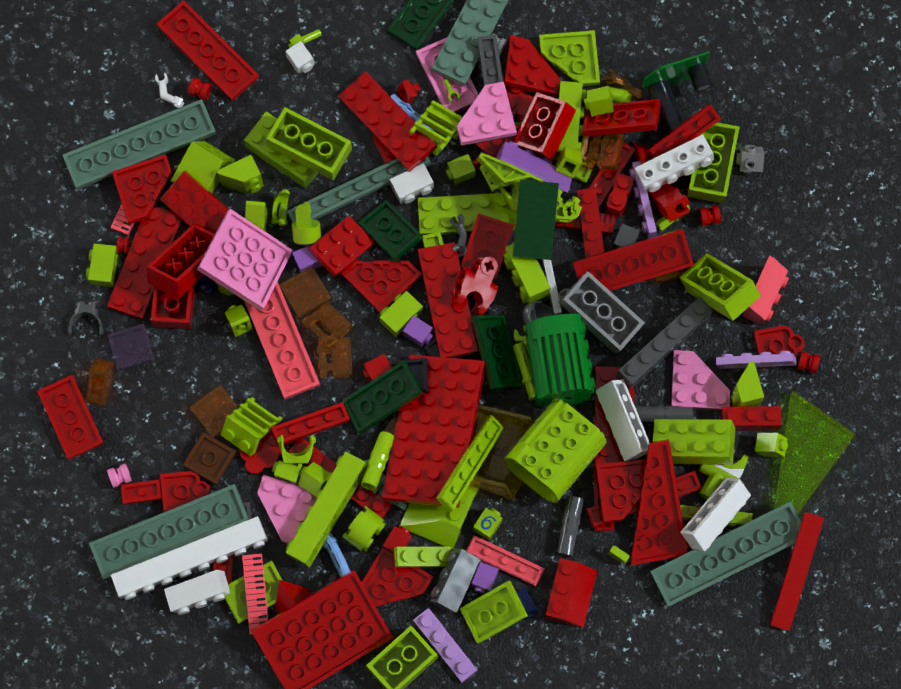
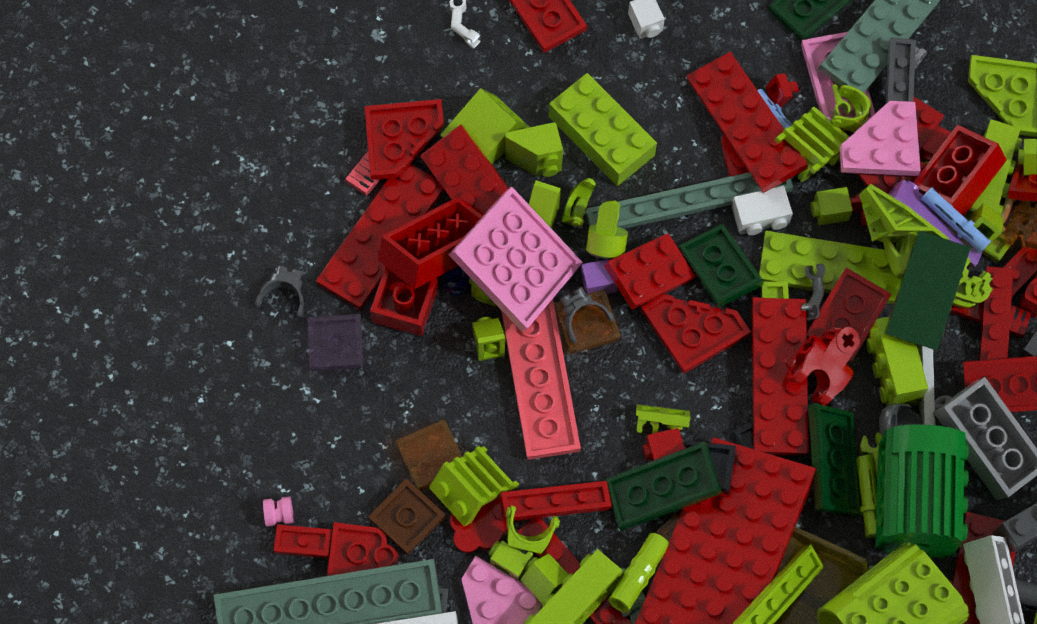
camera: 10 degrees right, 5 degrees down
(70, 417) = (231, 417): red plate -> none
(100, 381) = (282, 378): clear orange slope -> none
(102, 265) = (323, 225): lime brick -> none
(123, 245) = (356, 205): red bush -> none
(139, 143) = (409, 78): sand green plate -> none
(200, 89) = (505, 27): red wheel -> none
(293, 281) = (573, 303): none -> dark grey helmet
(309, 143) = (637, 124): lime brick -> none
(331, 320) = (615, 368): clear orange plate -> none
(341, 358) = (617, 420): clear orange plate -> none
(380, 347) = (671, 417): none -> lime plate
(400, 313) = (711, 379): lime brick -> none
(418, 332) = (730, 409): medium lavender brick -> none
(468, 93) = (861, 105): none -> lime helmet
(528, 69) = (947, 94): red plate -> none
(547, 163) = (956, 220): none -> light blue pin

